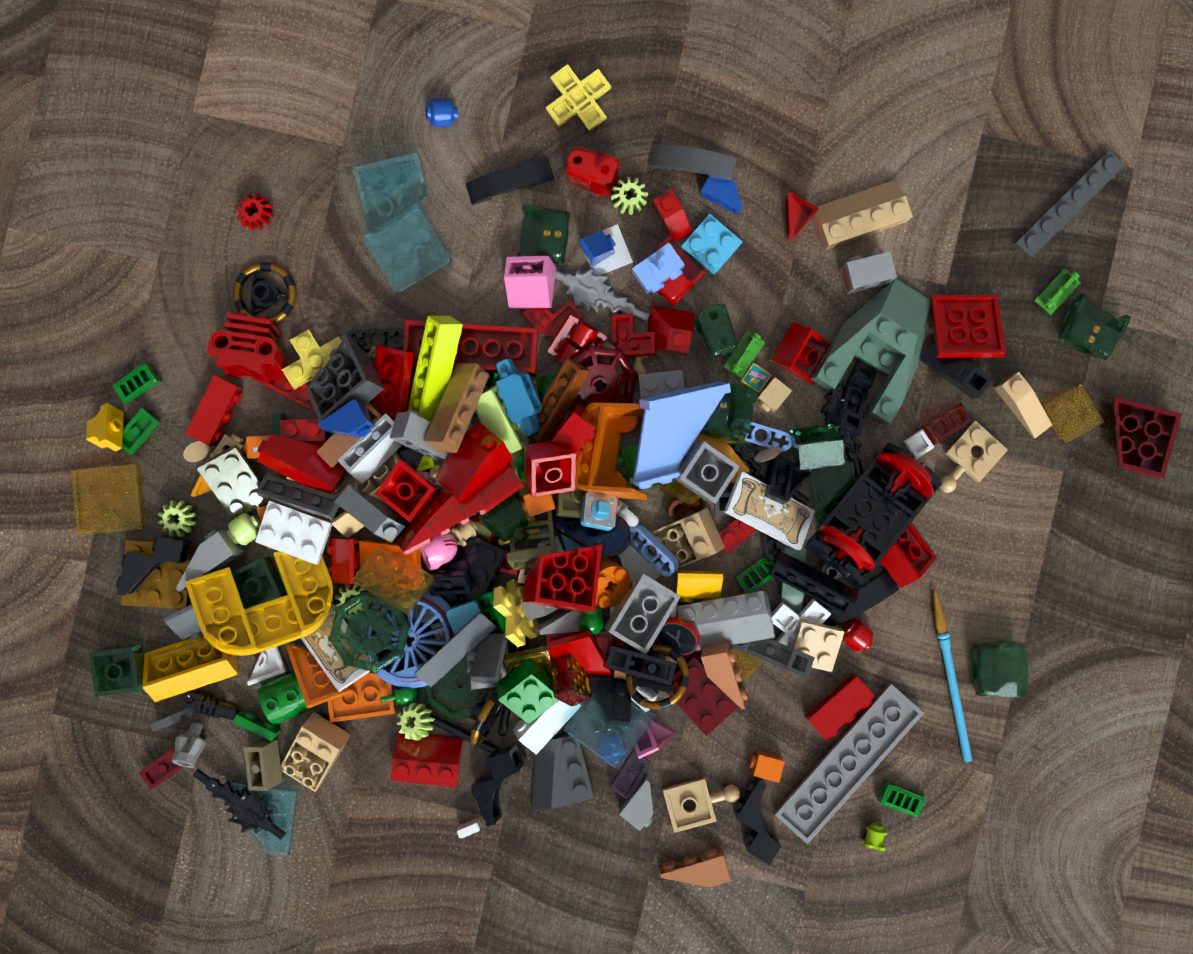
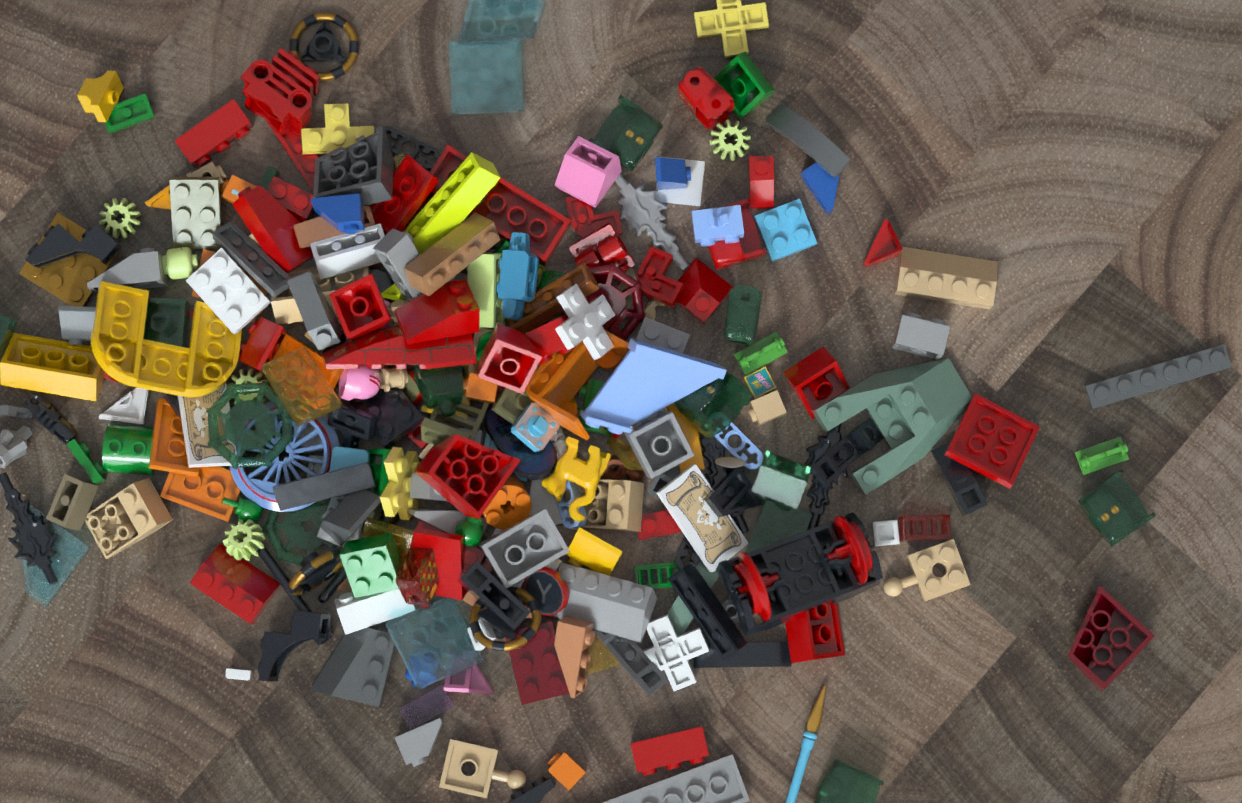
camera: 35 degrees right, 5 degrees down
(107, 499) = (62, 164): clear yellow plate -> none
(150, 372) = (171, 72): green slope -> none
(196, 451) = (173, 163): tan sticker -> none
(509, 179) = (622, 63): black slope -> none
(594, 405) = (585, 321): none -> white plate
(613, 698) = (450, 619): black wing -> none
(619, 142) = (745, 84): none -> green brick
(654, 527) = (579, 472): none -> yellow animal
(820, 642) = (684, 674): plate -> none
(857, 635) = (724, 687): red head -> none
(1023, 403) = (1010, 549): tan slope -> none
(1072, 414) = (1053, 584): clear yellow plate -> none

